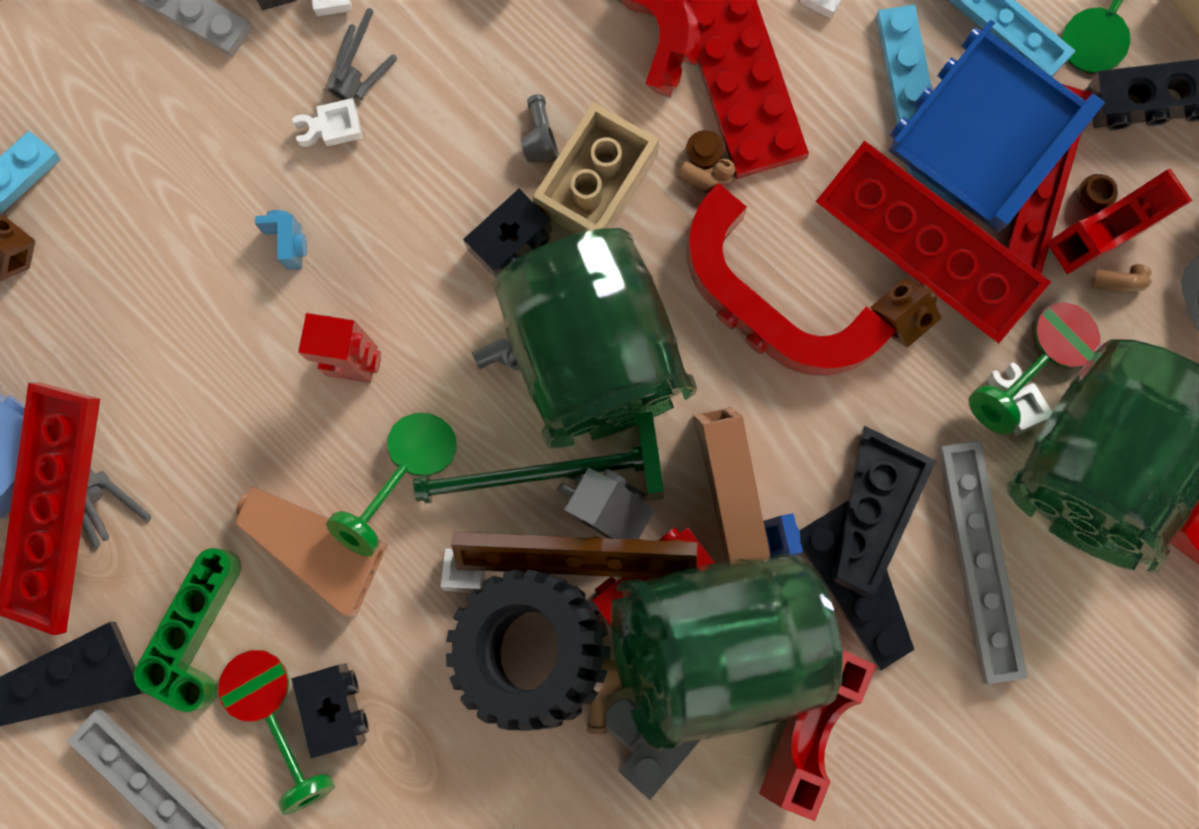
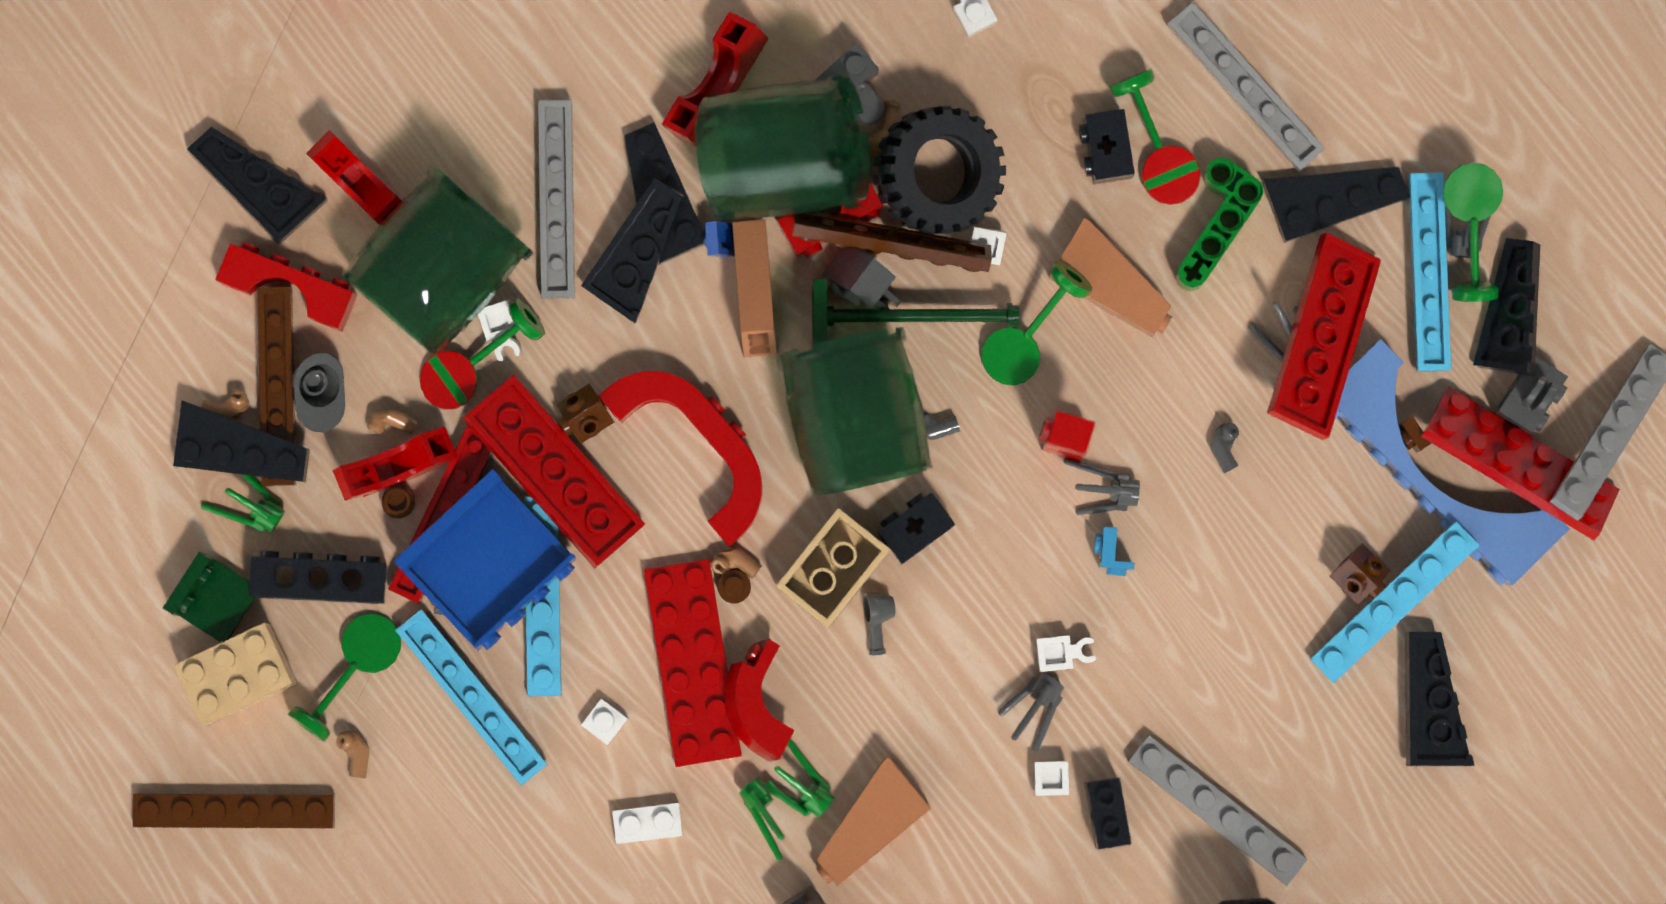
camera: 175 degrees left, 5 degrees up
(171, 373) = (1222, 444): none -> dark grey arm
(280, 303) = (1123, 491): none -> dark grey plant

